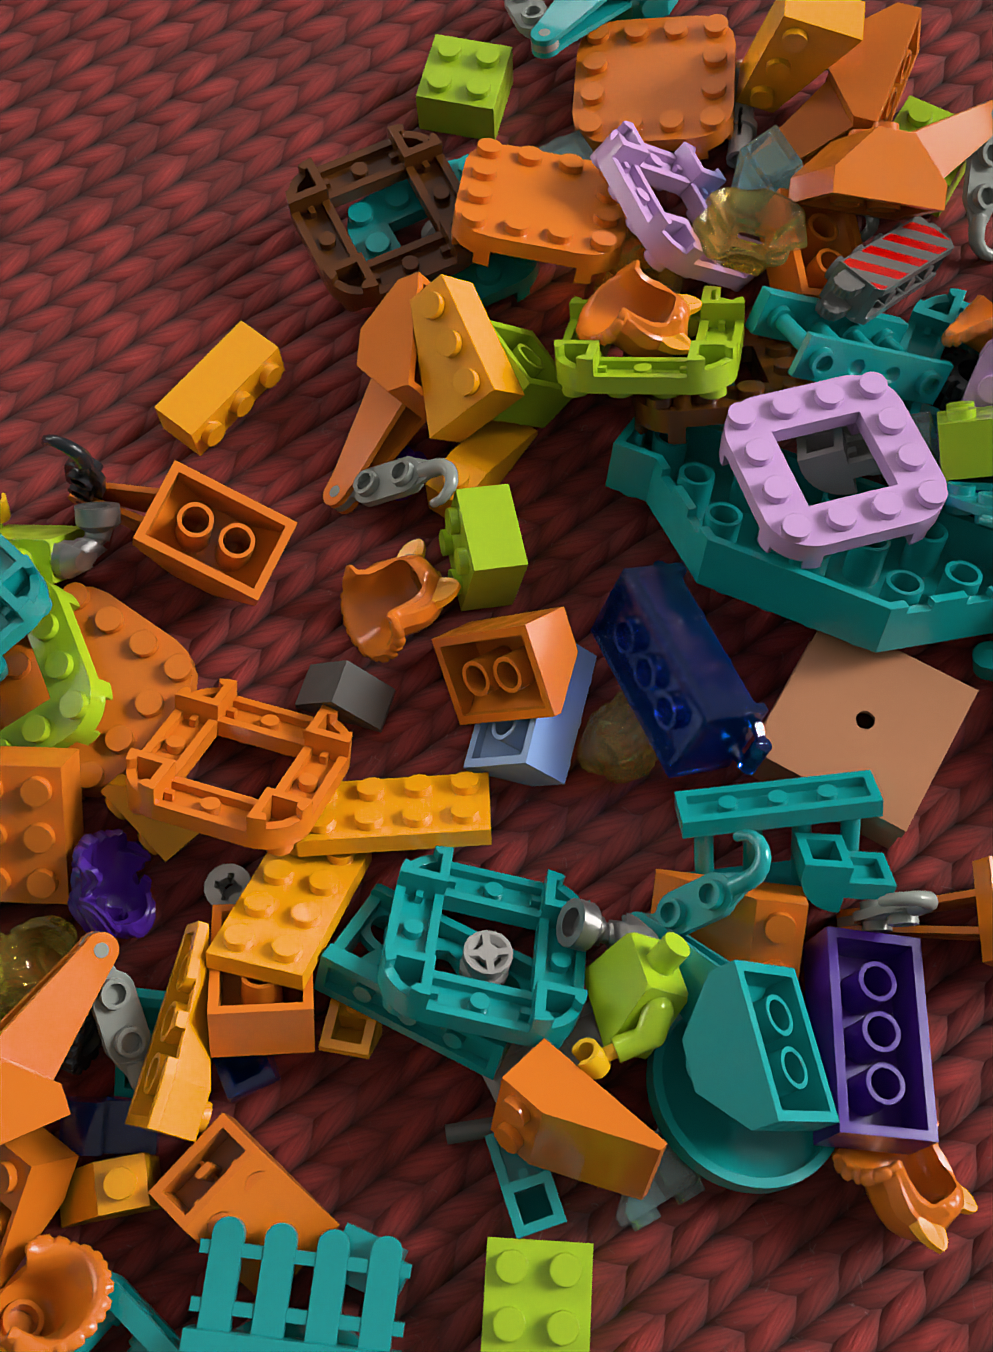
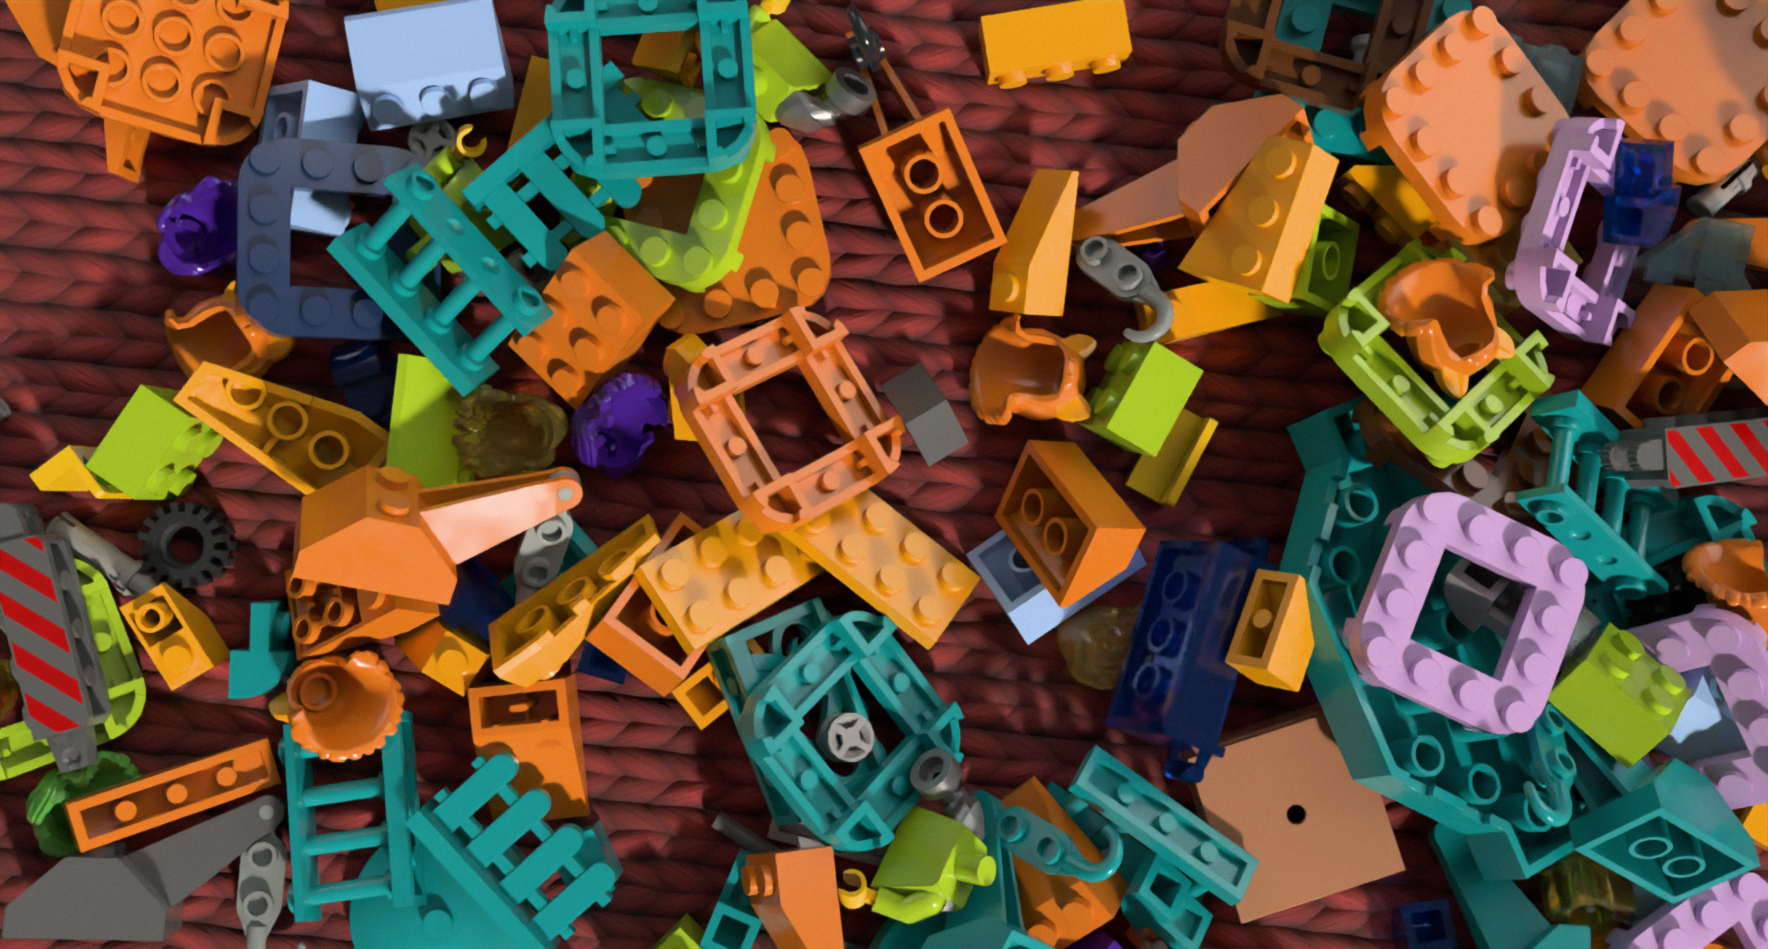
camera: 40 degrees right, 20 degrees up
(220, 878) = (714, 501): light grey wheel -> none
(328, 522) = (1035, 262): none -> light orange slope
(538, 299) = (1388, 200): none -> light orange slope
(548, 576) = (1167, 474): none -> yellow panel
(692, 165) = (1643, 194): none -> clear blue brick
(719, 597) = (1274, 632): none -> light orange slope
(752, 212) = (1655, 302): clear yellow piece -> none

